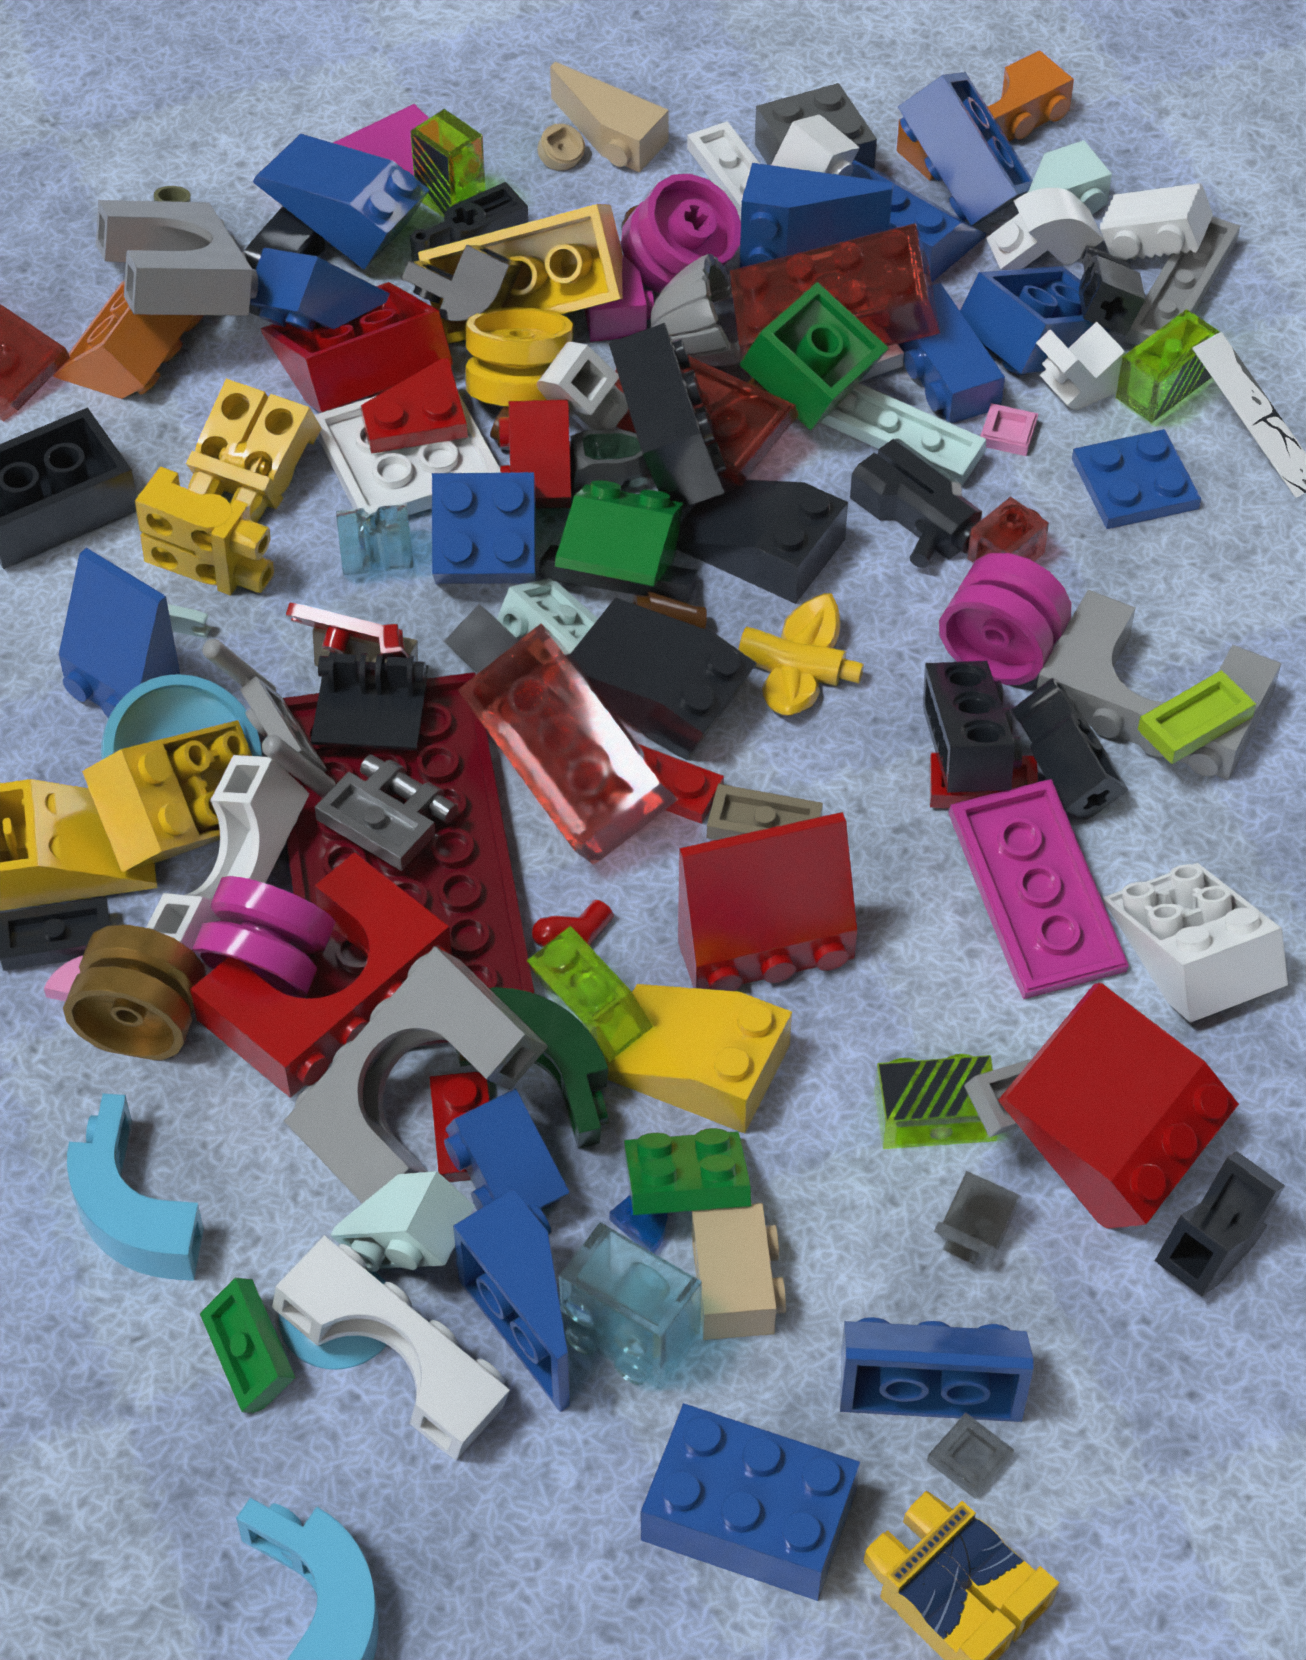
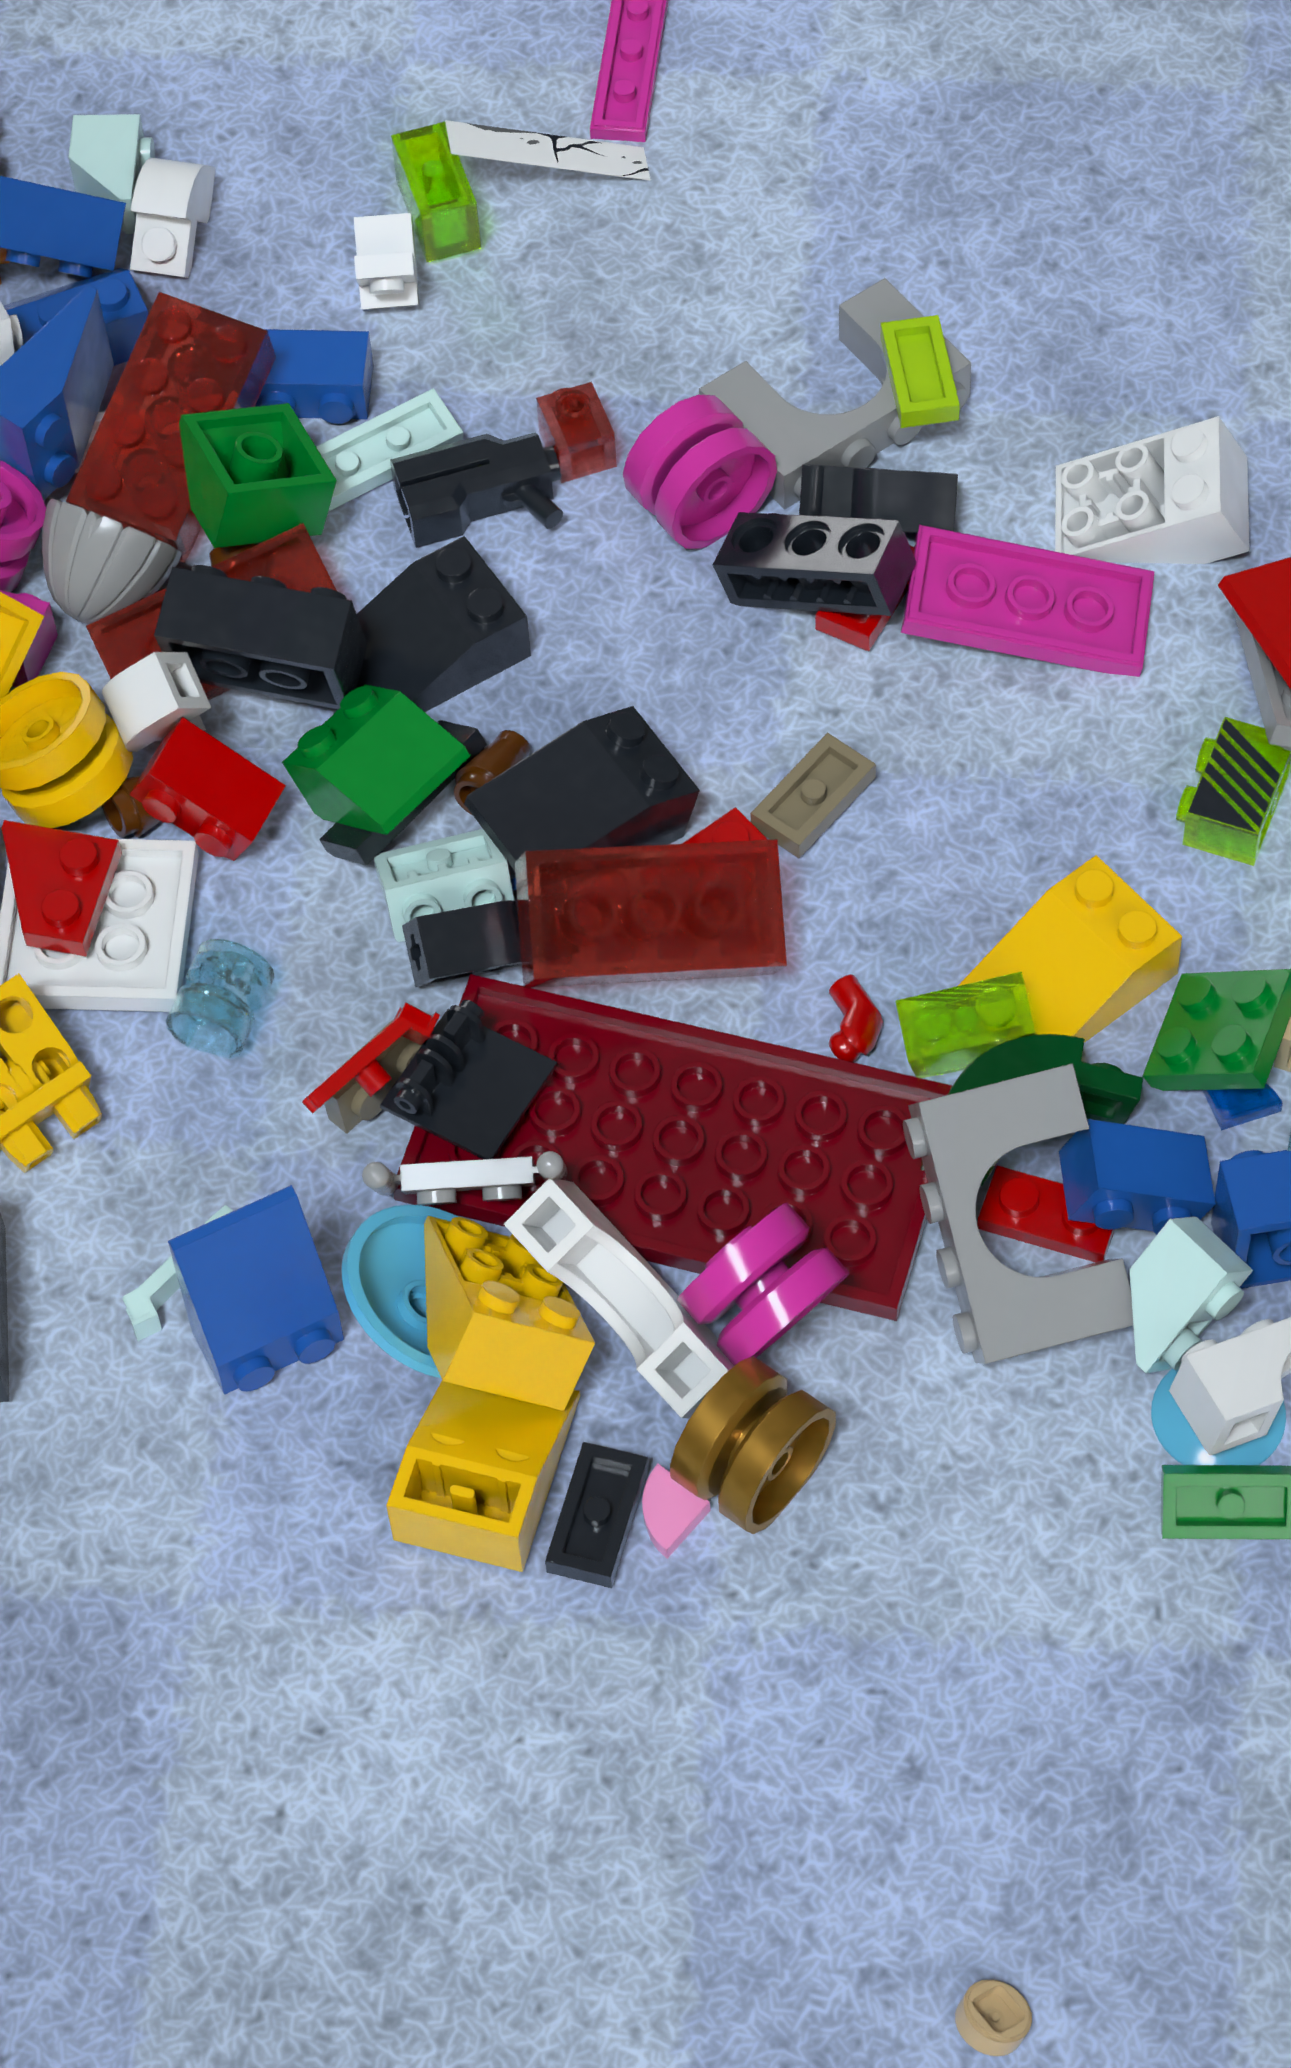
camera: 60 degrees left, 5 degrees up
(132, 1229) = (1000, 1573): medium azure arch -> none
(202, 535) = (122, 1161): yellow hips -> none
(298, 1037) = (830, 1173): red arch -> none
(379, 822) = (638, 1134): flat silver plate -> none
(483, 528) = (288, 881): blue brick -> none
(605, 456) = (246, 723): dark grey rock -> none
(767, 904) = (966, 828): red slope -> none
(801, 656) = (615, 674): yellow plant -> none
(1009, 429) = (412, 369): bright pink tile -> none
(1019, 307) = (285, 270): blue slope -> none
(1109, 291) = (296, 192): black piece -> none
(1136, 479) = (548, 294): blue plate -> none
(1156, 221) = (231, 110): white brick -> none
(1184, 280) = (314, 133): light grey plate -> none

